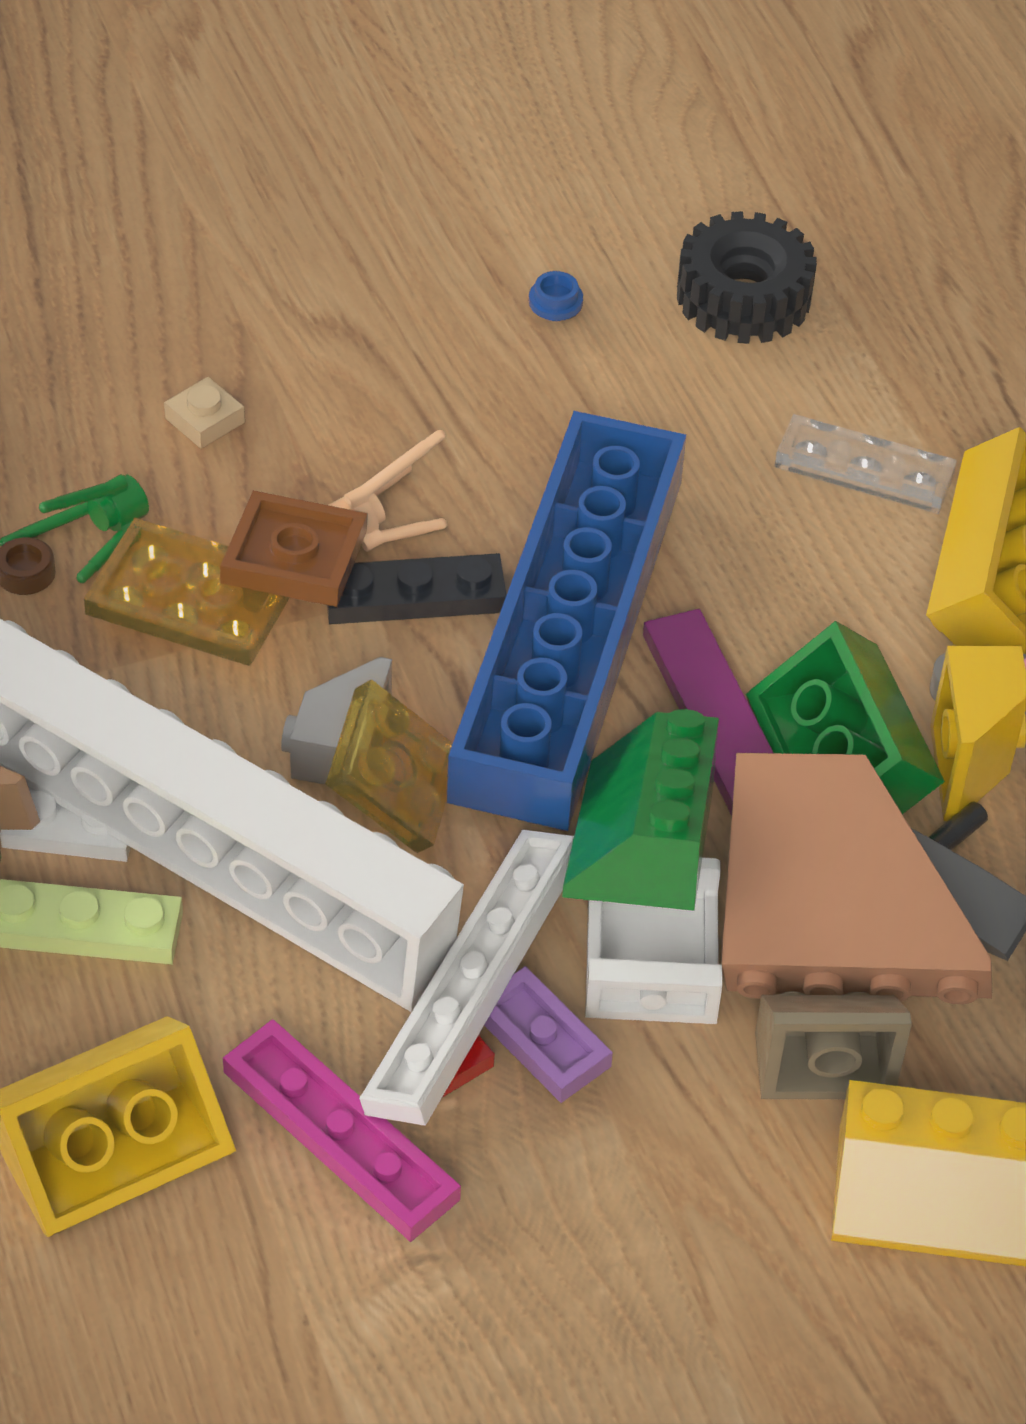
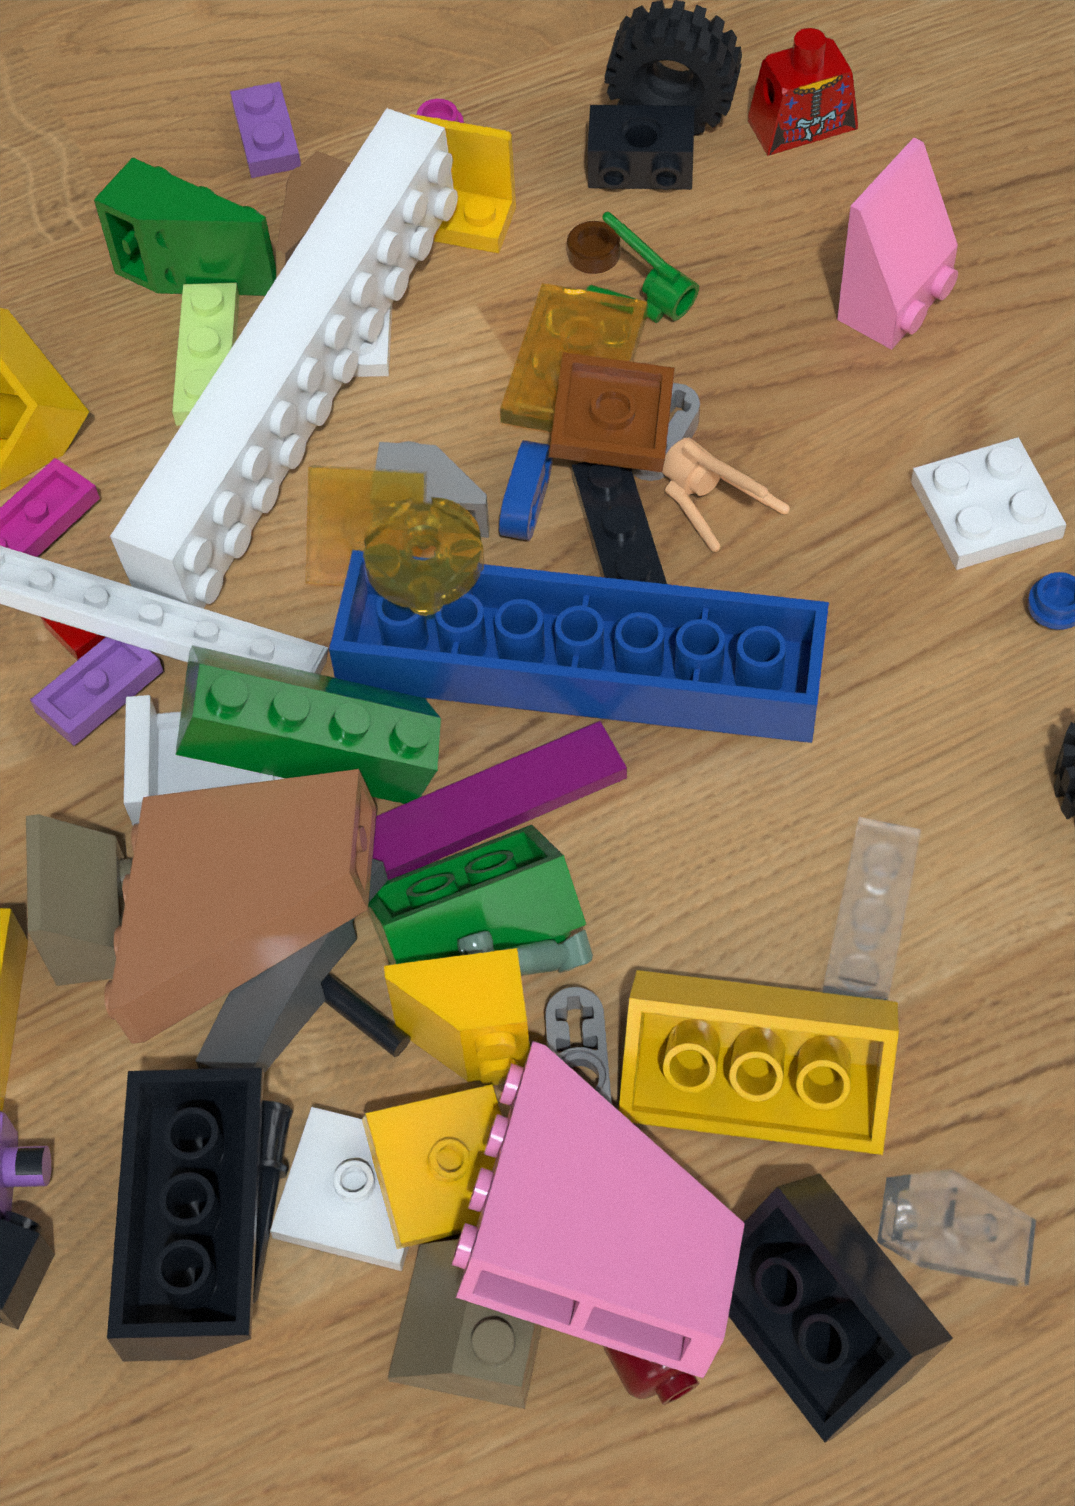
camera: 90 degrees right, 10 degrees up
(151, 312) = (897, 250): none -> bright pink slope
(204, 412) = (815, 339): tan plate -> none
(350, 641) = (525, 490): none -> blue beam
(433, 326) = (988, 503): none -> white plate
(473, 712) = (429, 582): none -> clear yellow plate
(919, 686) = (536, 956): none -> sand green arm

